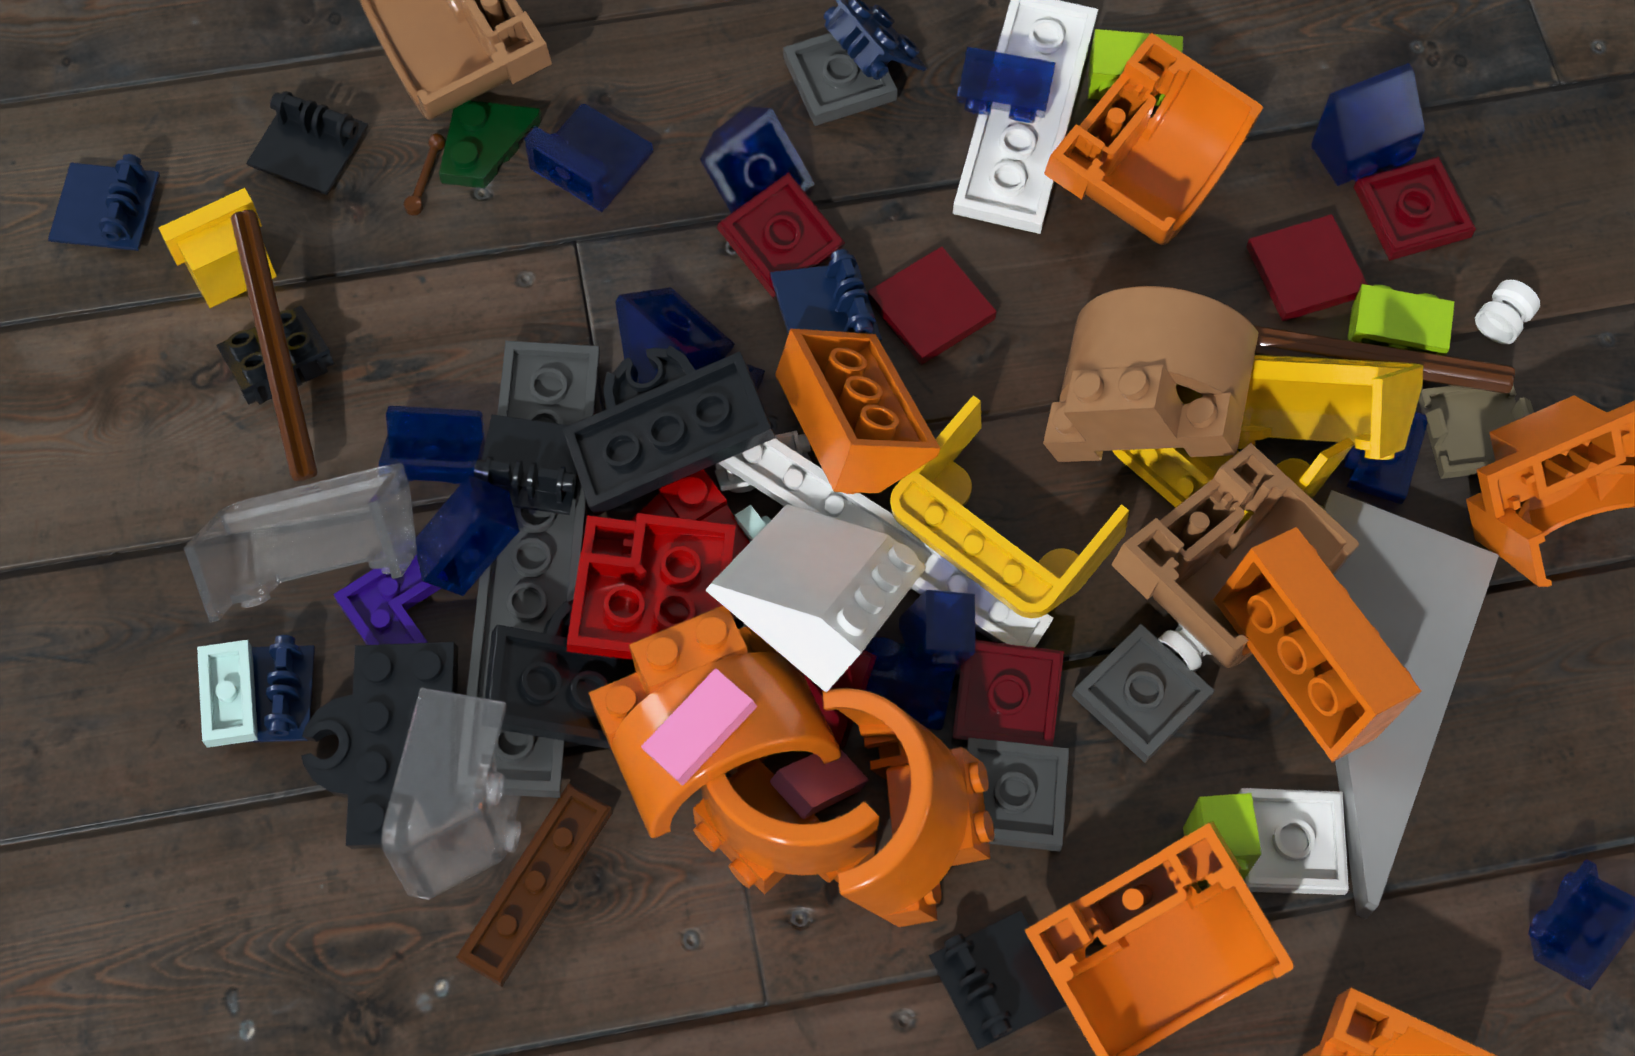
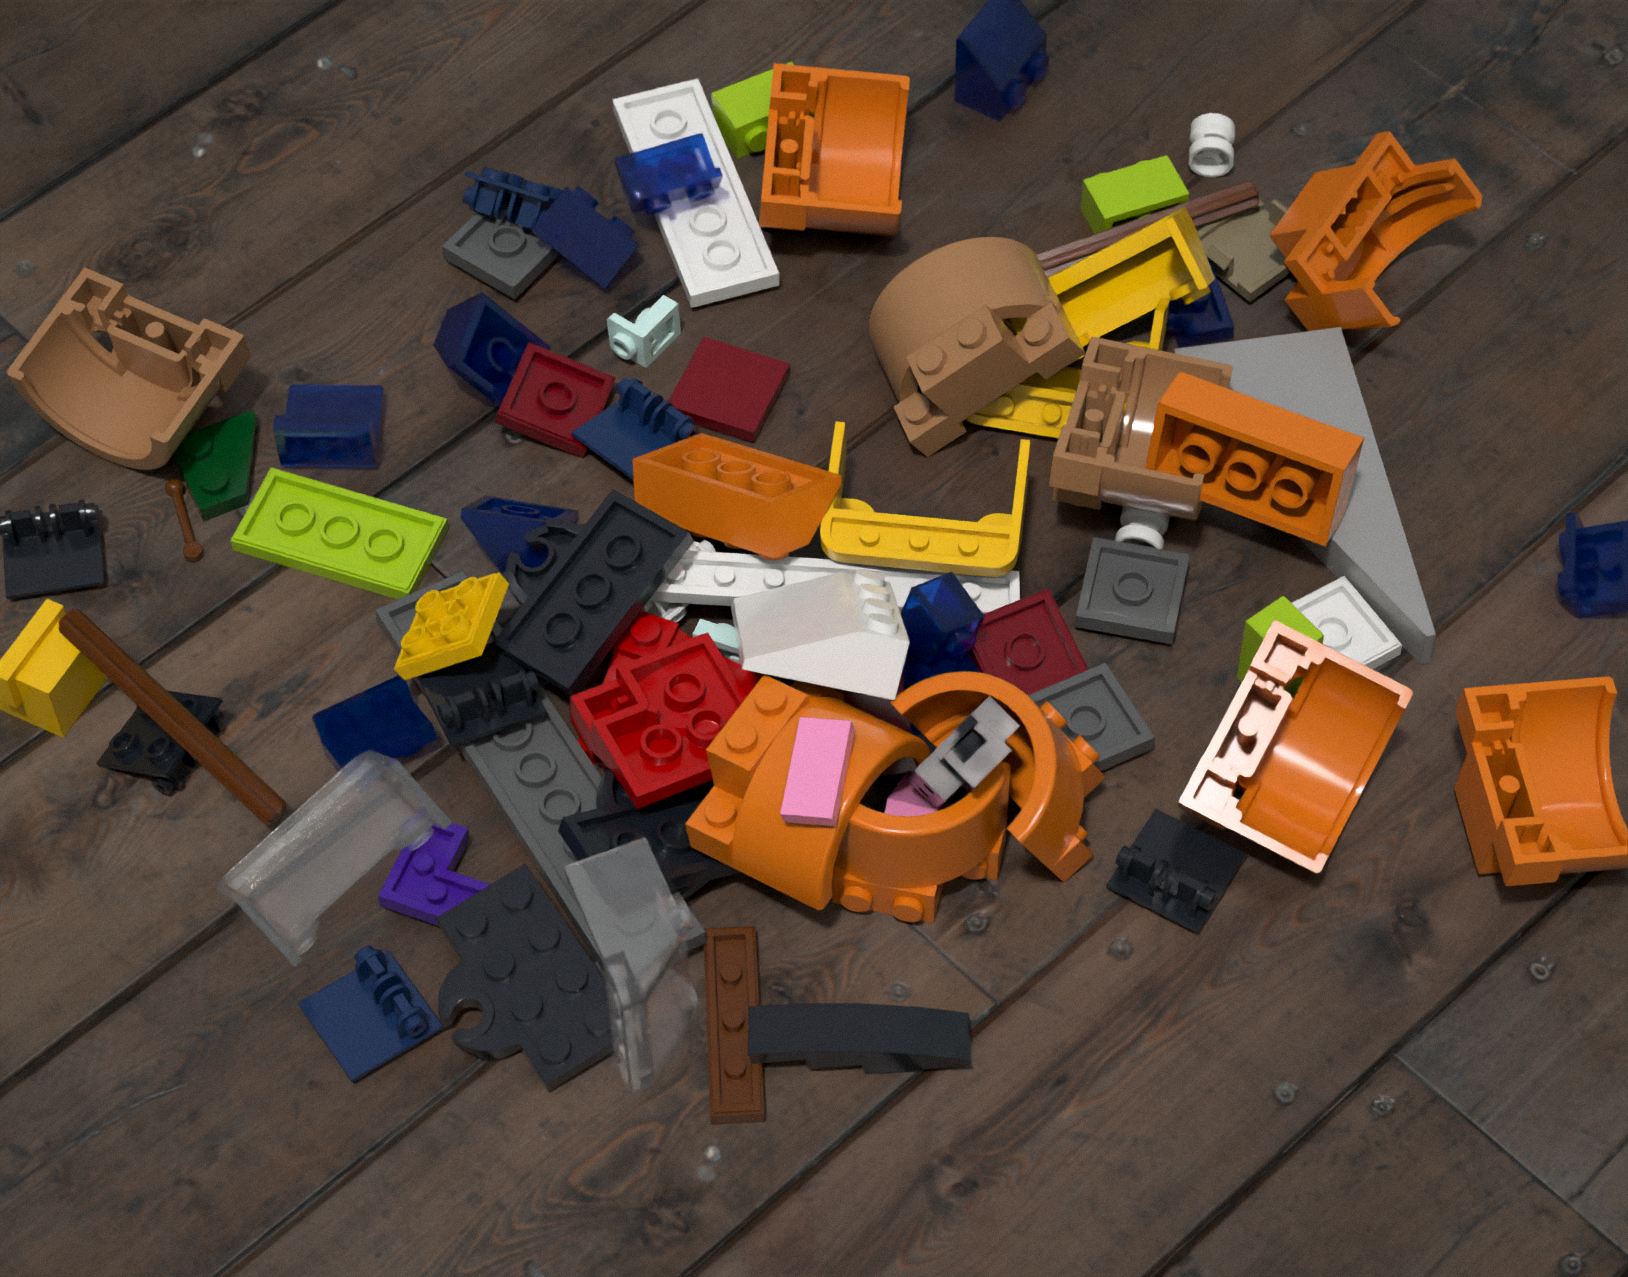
camera: 30 degrees left, 10 degrees down
(227, 693) = (345, 1025): light aqua plate -> none
(466, 535) = (472, 773): clear blue brick -> none
(533, 256) = (339, 534): none -> lime tile
(538, 394) = (451, 625): none -> yellow tile
(621, 965) = (859, 1034): none -> black slope
(847, 783) = (965, 754): none -> piece
(897, 220) = (649, 335): none -> light aqua bracket
(903, 102) = (585, 236): none -> clear blue bracket
(1306, 267) = (1023, 196): dark red tile -> none
(1414, 208) = (1076, 106): dark red tile -> none

